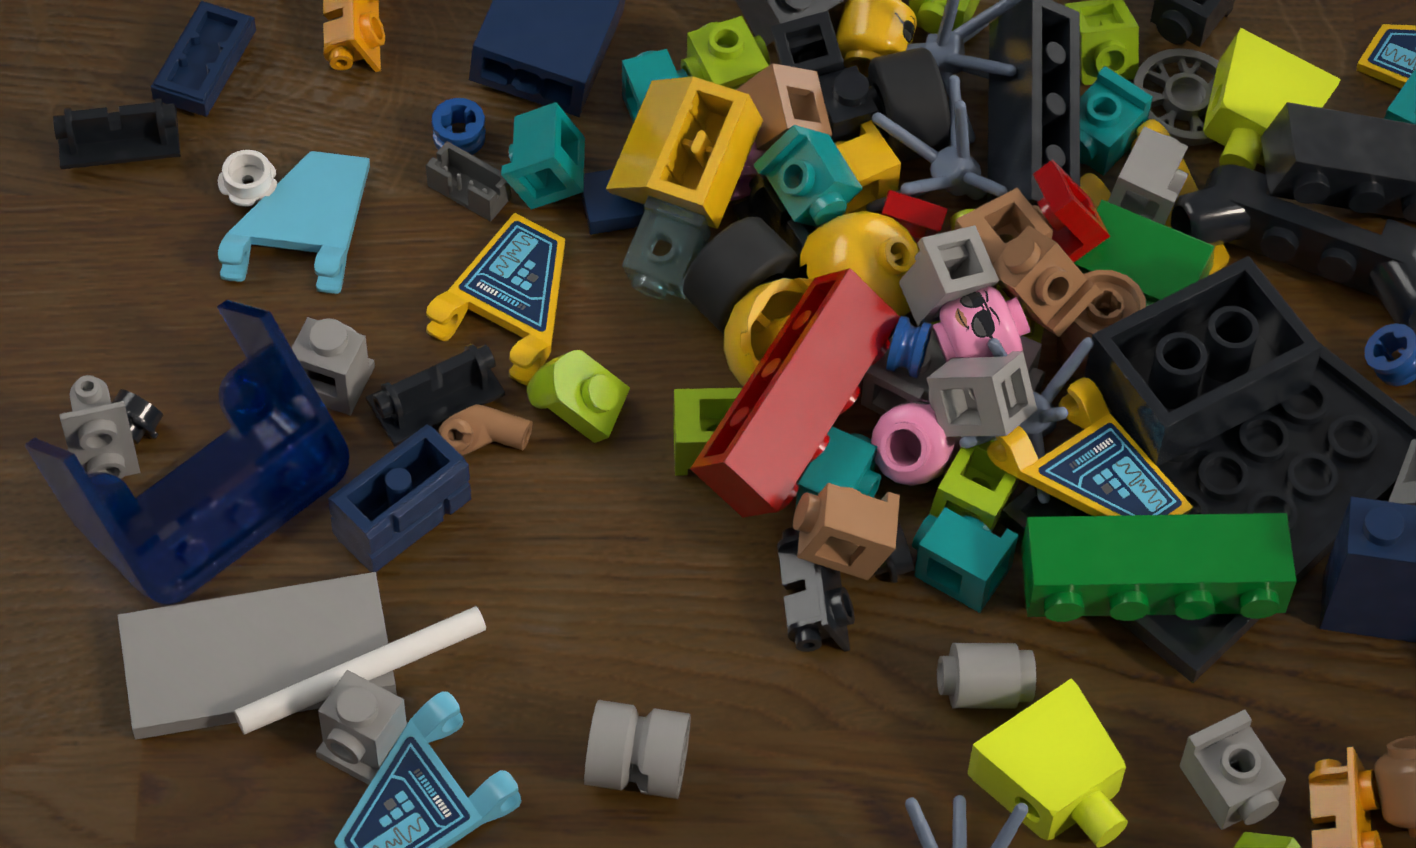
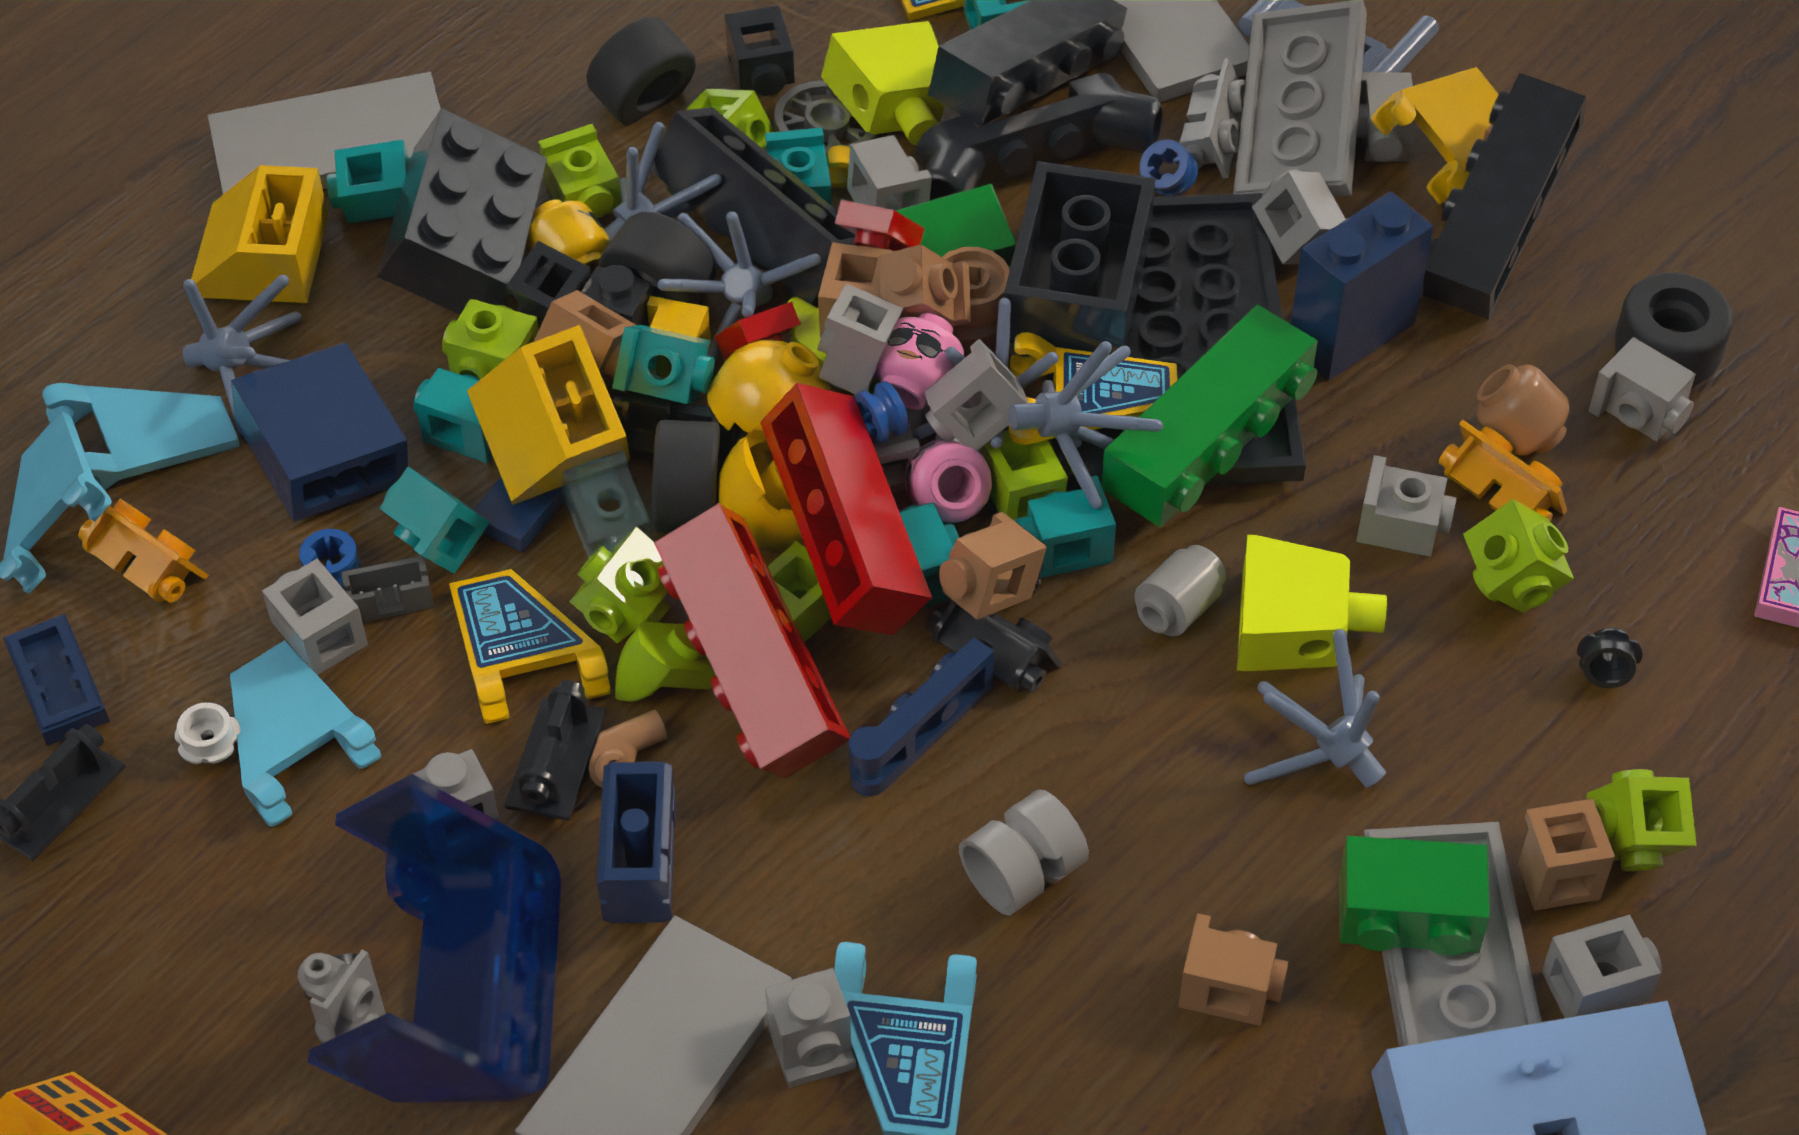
camera: 45 degrees left, 5 degrees down
(367, 666) = (752, 1002): white bar -> none
(396, 158) = (315, 616): none -> light grey brick
(626, 314) = (622, 587): none -> lime brick
(628, 430) = (750, 642): none -> brick
(691, 593) = (920, 718): none -> dark blue plate
(1018, 461) = (1061, 415): none -> sand blue plant

